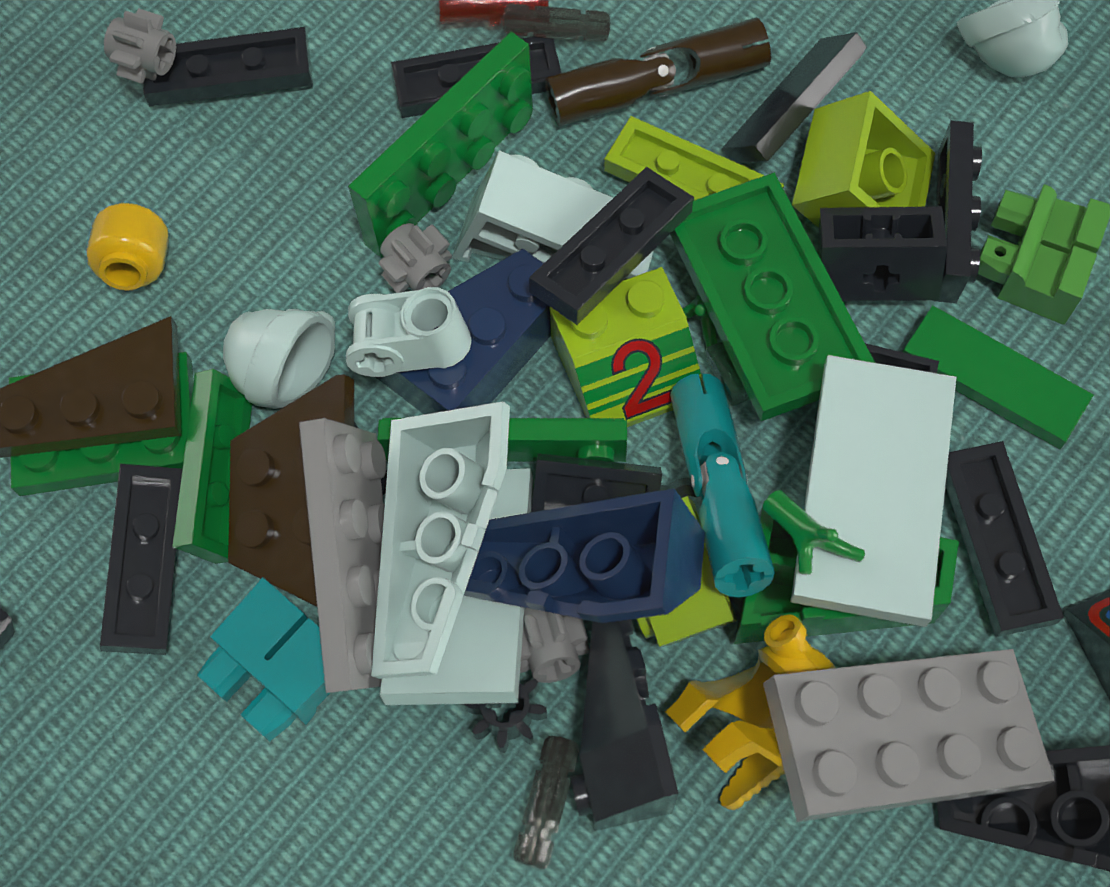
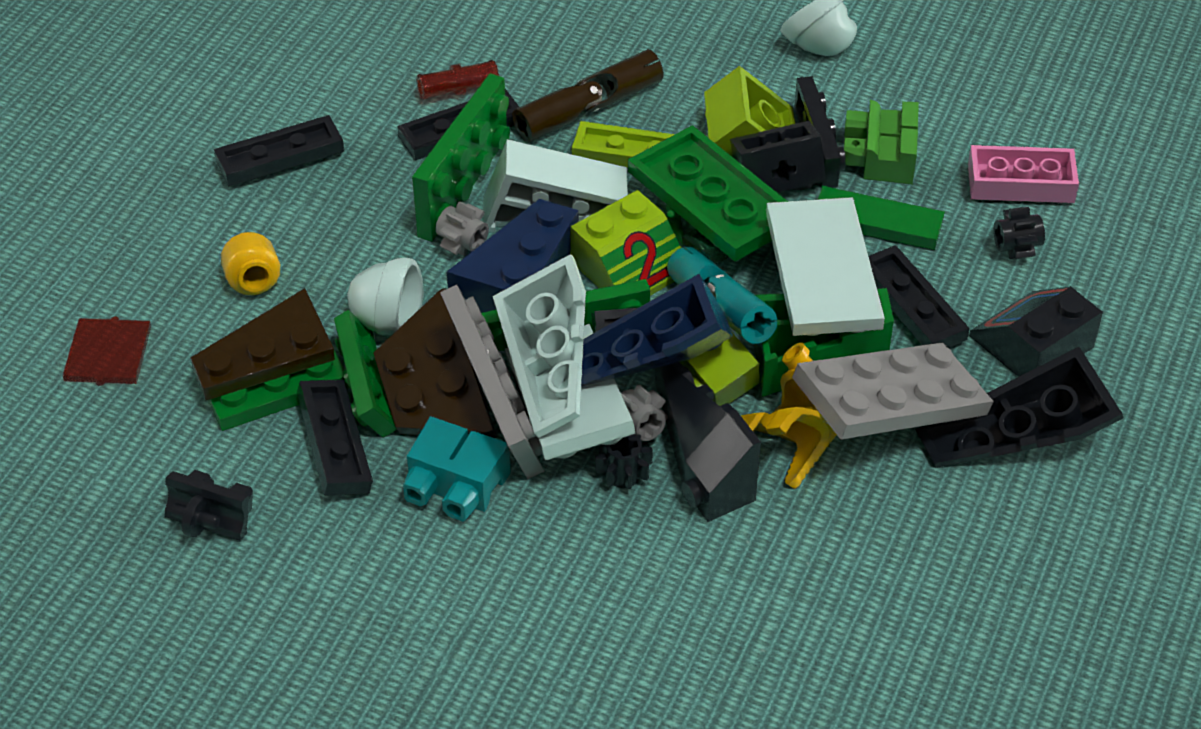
camera: 20 degrees left, 20 degrees down
(139, 45) = (220, 140): light grey gear -> none
(404, 332) = (487, 247): light aqua piece -> none
(546, 802) = (669, 508): clear smoke axle -> none
(556, 22) = (515, 79): clear smoke axle -> none
(611, 245) = (601, 178): black plate -> none
(794, 99) = (688, 90): black tile -> none
(807, 532) = (791, 288): green bar -> none

